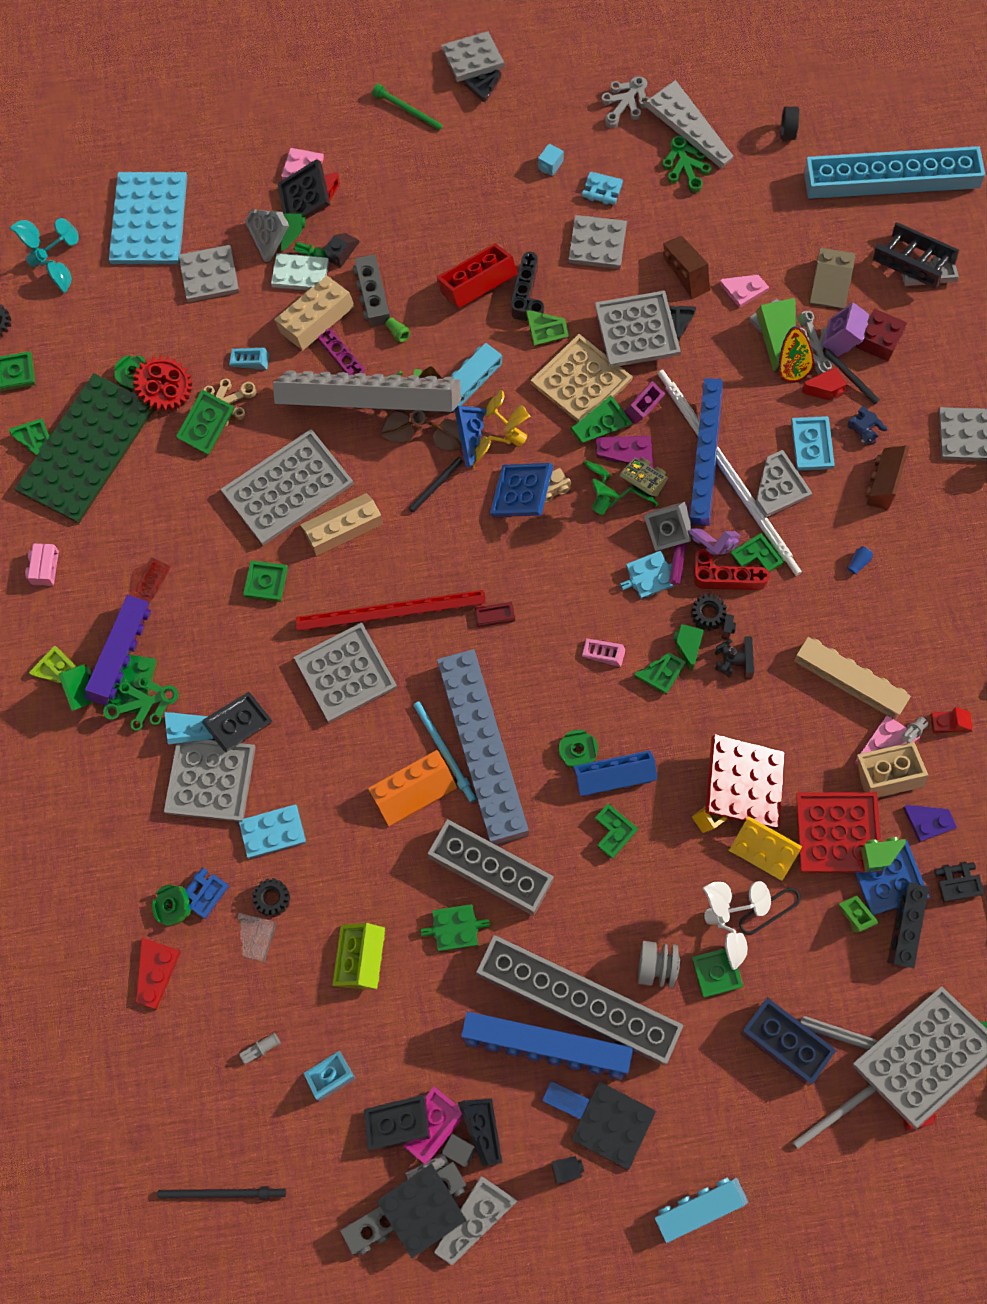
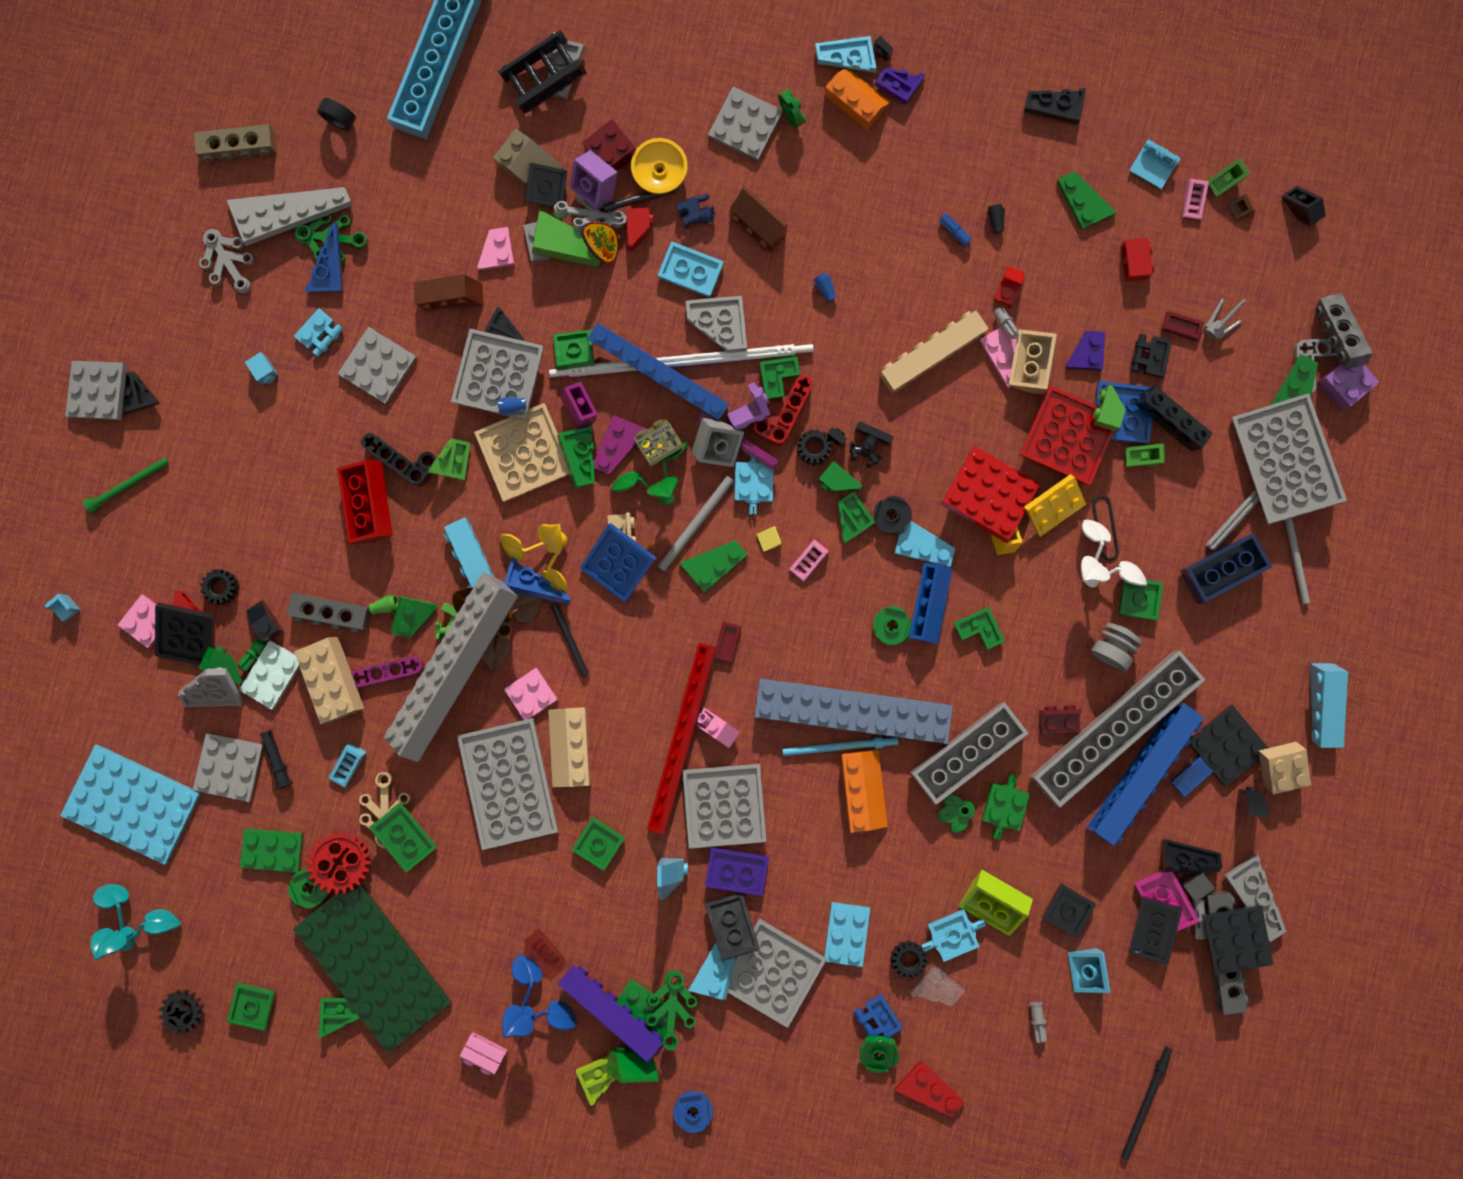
camera: 70 degrees left, 15 degrees up
(55, 773) = (684, 1119): none -> blue plate
(79, 568) = (519, 1019): none -> blue plant
(153, 332) = (271, 850): none -> green plate
(223, 308) = (278, 768): none -> black pin
(259, 644) = (669, 875): none -> medium azure wedge
(288, 105) = (63, 606): none -> medium azure panel
(290, 708) = (737, 871): none -> dark purple plate
(311, 929) = (953, 935): none -> medium azure plate
(355, 196) = (211, 578): none -> black tyre
(374, 473) = (530, 694): none -> bright pink plate
(380, 1031) = (1068, 910): none -> black plate
(398, 351) = (410, 616): none -> green wing
(413, 635) = (716, 727): none -> bright pink slope
(427, 882) = (953, 813): none -> green plate
(559, 573) = (714, 564): none -> green wing
(562, 945) = (1060, 721): none -> dark red bracket
(587, 542) = (695, 523): none -> light grey piece
(605, 610) = (769, 539): none -> light yellow slope
(614, 345) = (511, 405): none -> blue cone
(617, 1189) = (1285, 767): none -> tan brick
(659, 171) = (328, 269): none -> blue wing
(666, 745) = (924, 546): none -> medium azure wing
(677, 714) = (898, 524): none -> black plate
(688, 380) = (573, 350): none -> green plate
(725, 66) = (207, 140): none -> dark tan brick
(820, 297) = (545, 185): none -> black plate
(892, 370) = (655, 155): none -> yellow dish
(976, 650) = (955, 229): none -> blue axle

